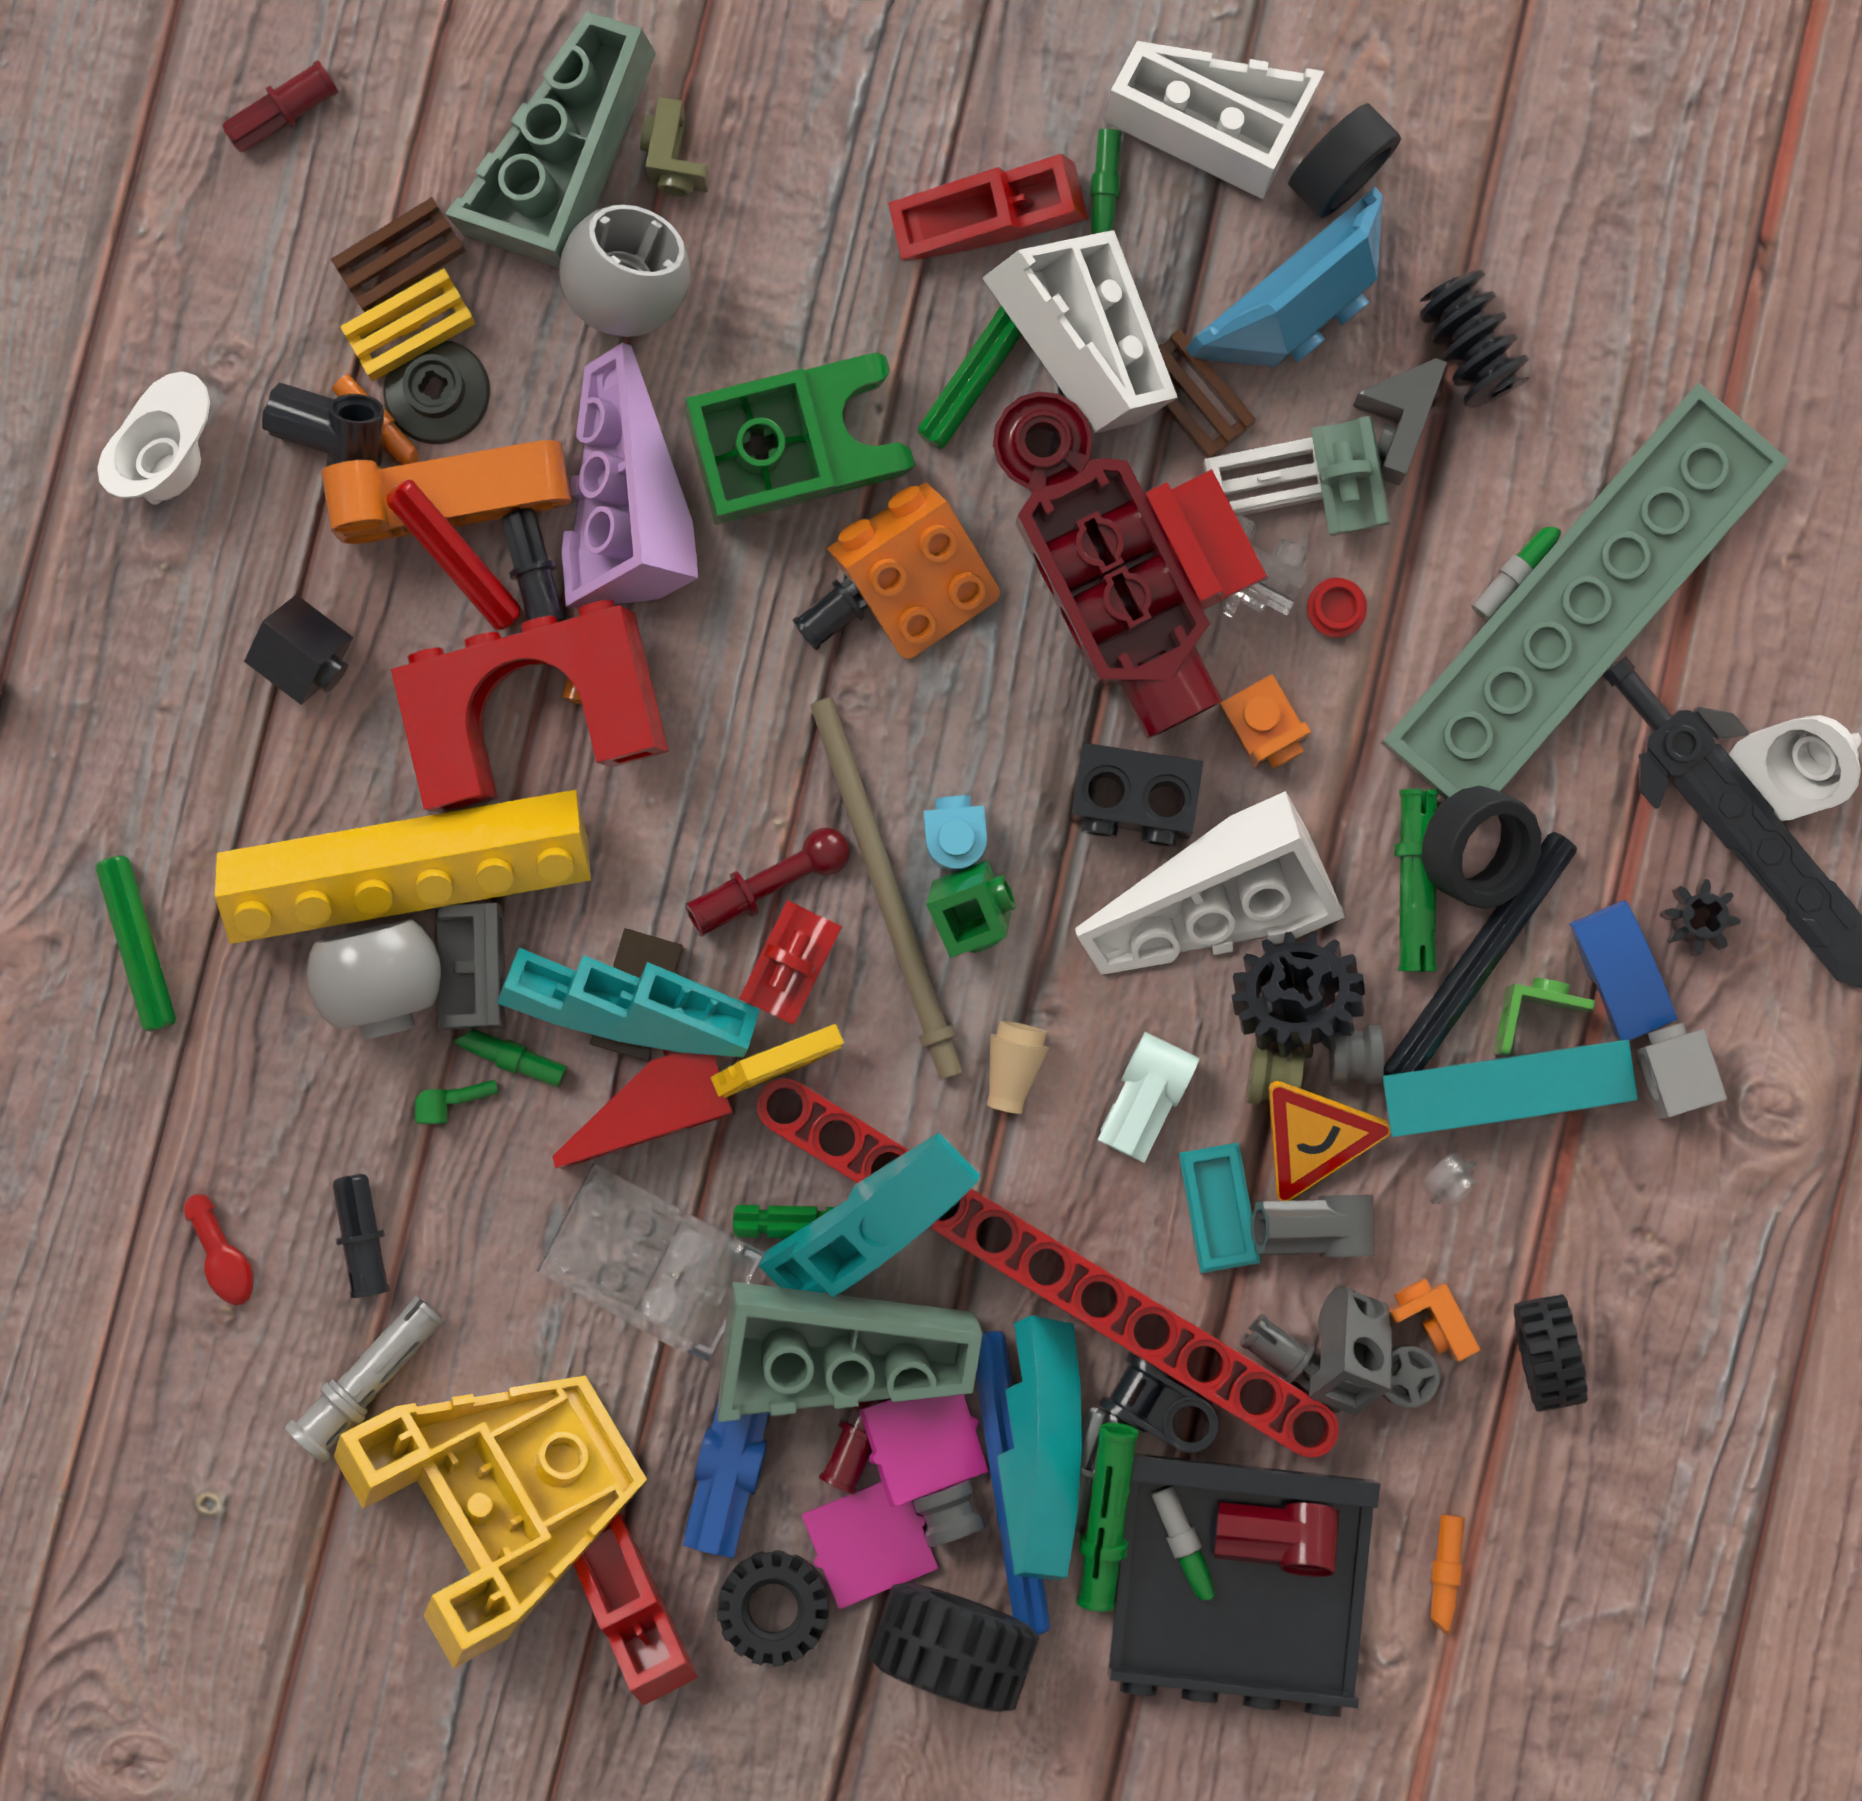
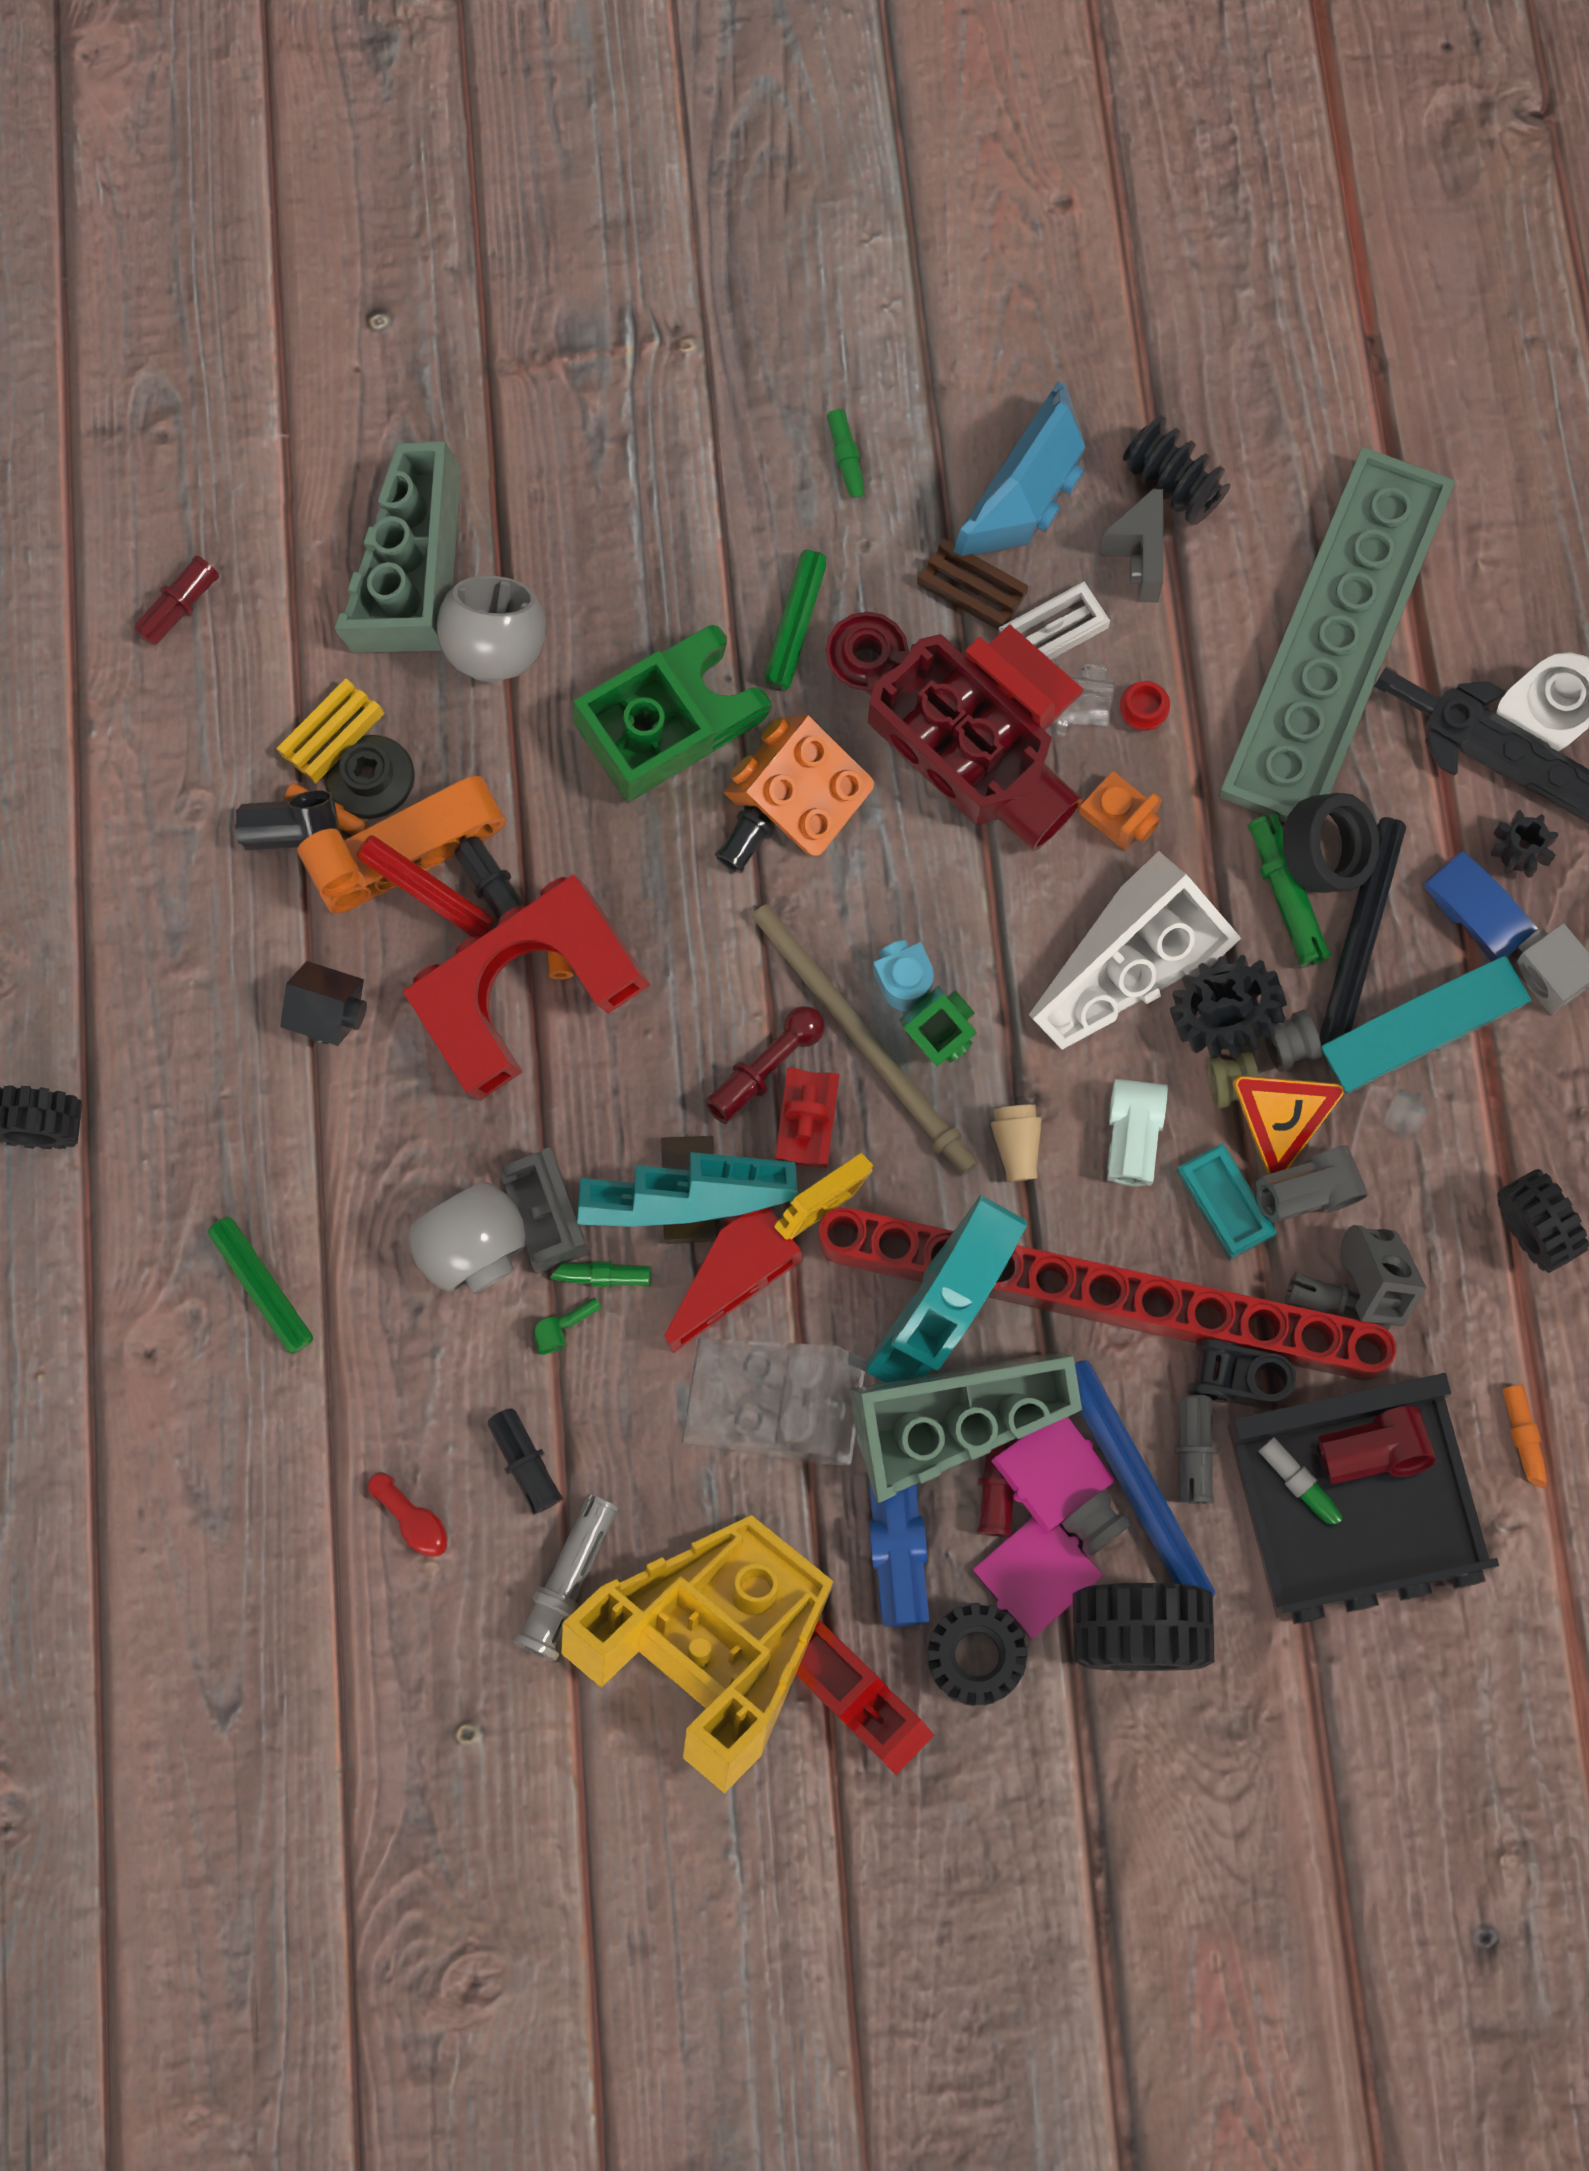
camera: 15 degrees left, 10 degrees down
(157, 444) = (157, 882): white piece -> none
(386, 236) = (293, 669): reddish brown tile -> none
(402, 866) = (462, 1146): yellow brick -> none
(631, 515) = (553, 806): lavender wedge -> none
(662, 139) = (499, 548): olive bracket -> none
(776, 1222) = (866, 1334): green axle -> none
(988, 209) = (762, 497): red slope -> none
(1044, 1466) = (1162, 1450): teal slope -> none
(1087, 327) = (871, 553): white wedge -> none
(1104, 1541) = (1241, 1542): green pin -> none
(1137, 776) = (1034, 881): black brick -> none
(1212, 111) = (911, 369): white wedge -> none
(1344, 160) = (1026, 370): black tyre -> none
(1351, 476) = (1119, 600): sand green hips -> none
(1420, 1383) = (1440, 1276): dark grey wheel -> none
(1445, 1326) = (1446, 1227): orange bracket -> none
(1515, 572) = (1273, 635): light grey piece -> none
(1543, 992) = (1421, 943): bright green bracket -> none

